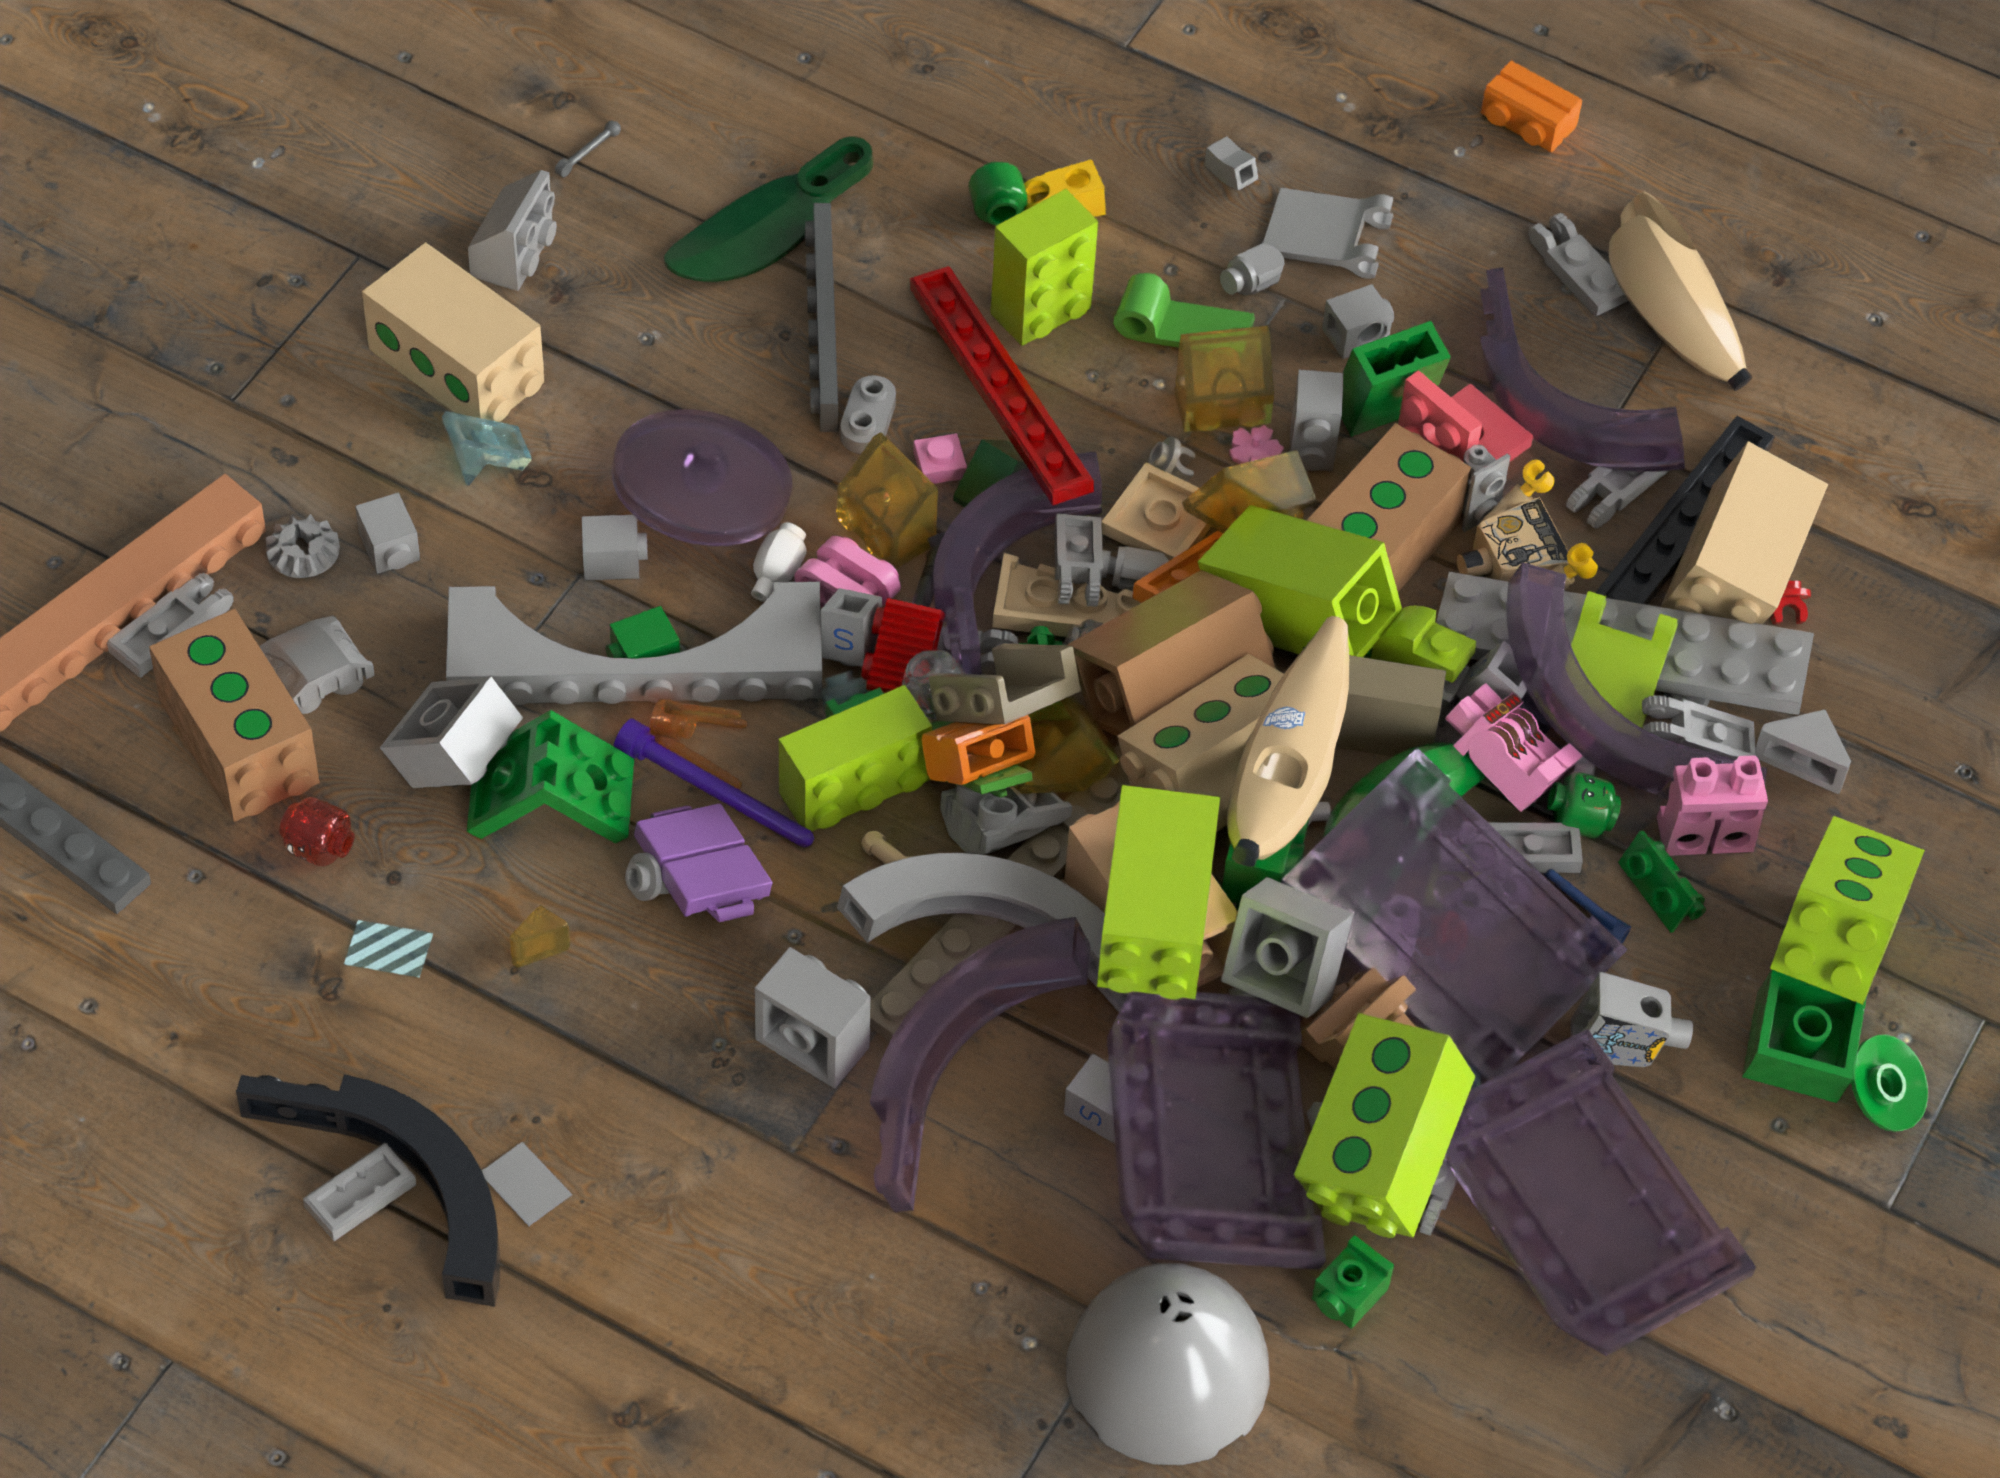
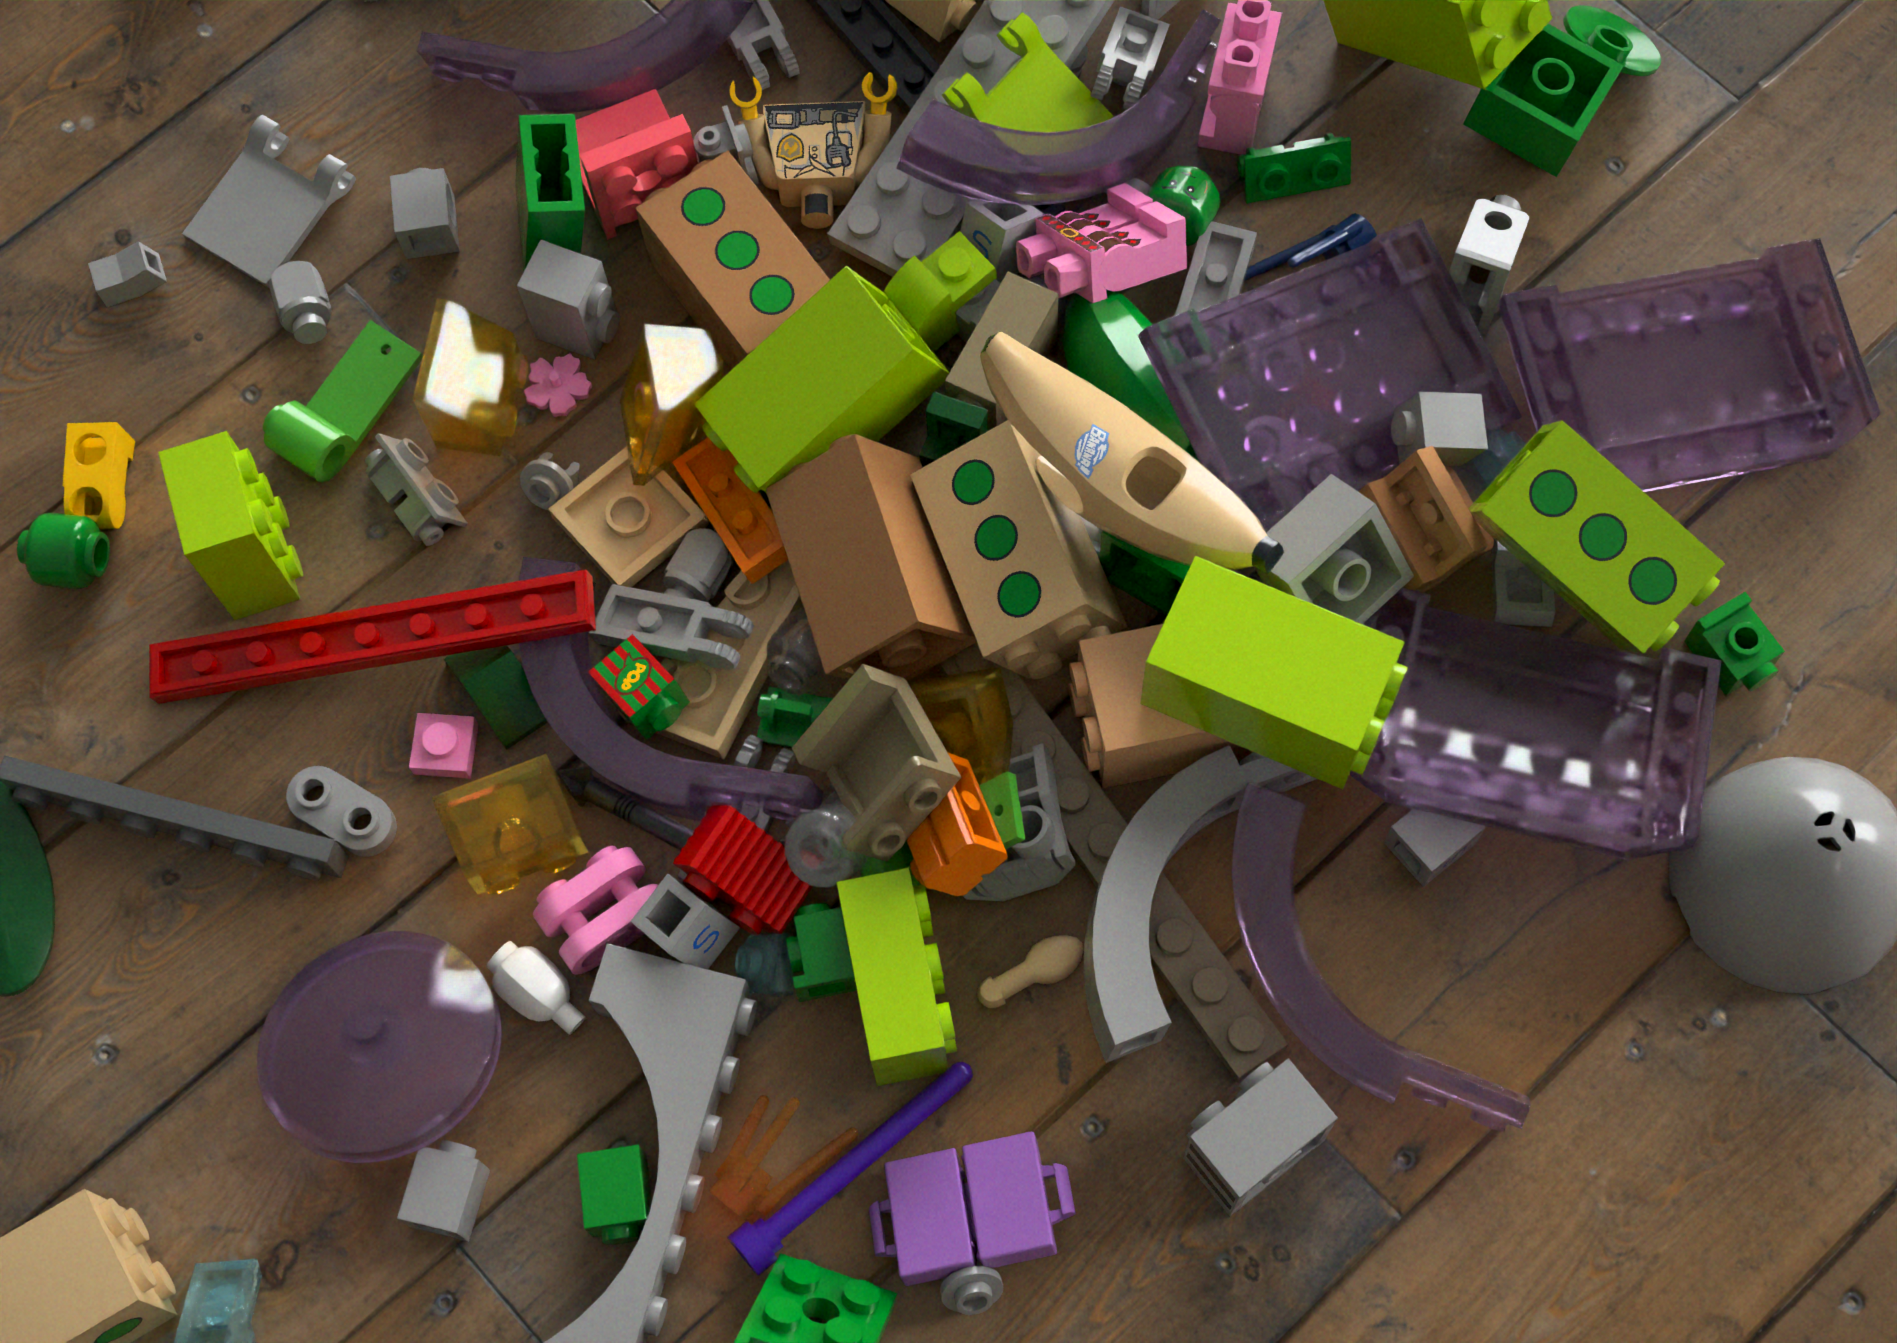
camera: 65 degrees left, 15 degrees up
(1021, 549) = (640, 687): none -> green brick
(1135, 383) = (429, 501): none -> light grey hinge
(1445, 1004) = (1445, 420): none -> light grey brick

